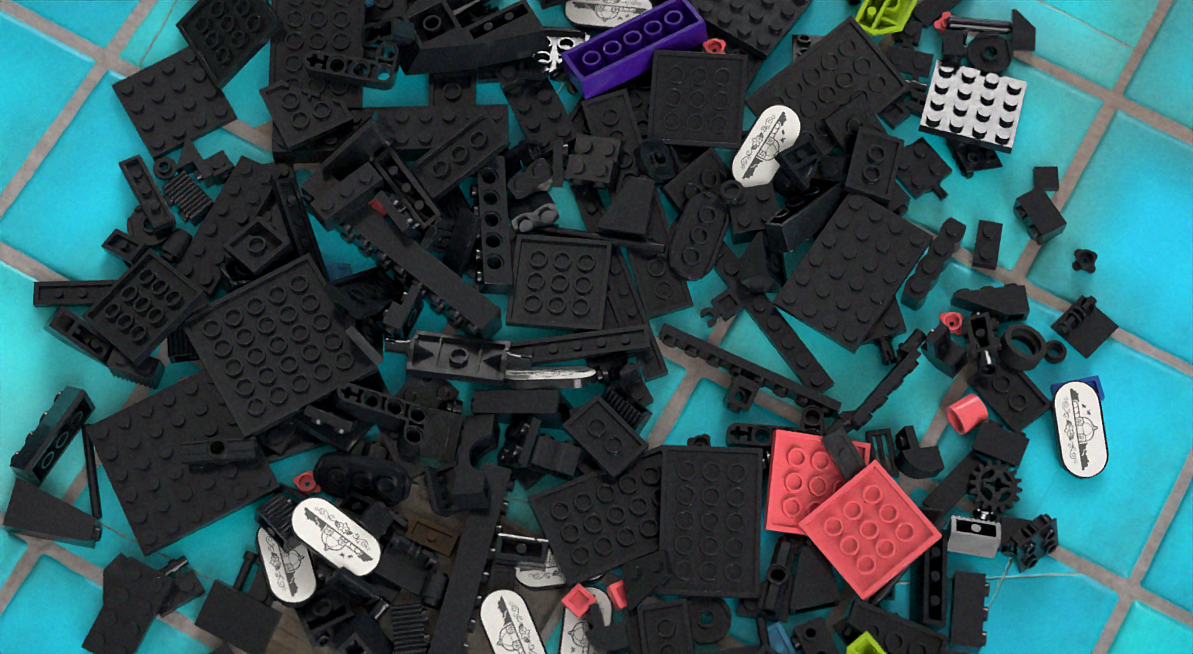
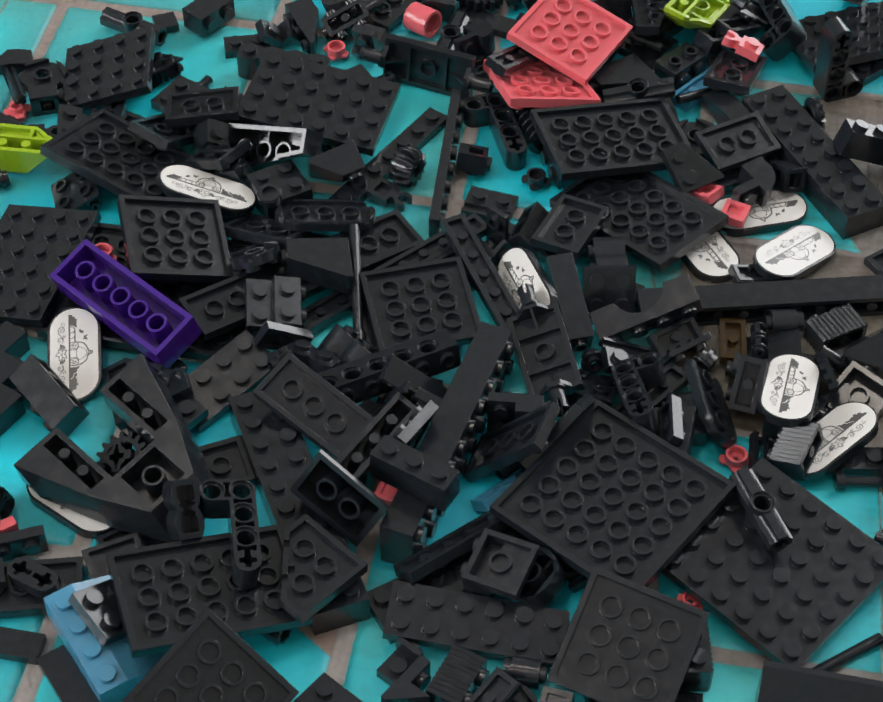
camera: 110 degrees left, 20 degrees down
(417, 503) = (709, 357): none -> black plate
(521, 552) = (716, 255): black brick -> none
(680, 394) = (480, 198): none -> black plate
(745, 329) = (407, 166): none -> black gear
(948, 445) = (453, 30): none -> black piece
(988, 267) = (275, 35): none -> black bracket
(1033, 153) = (129, 22): none -> black piece

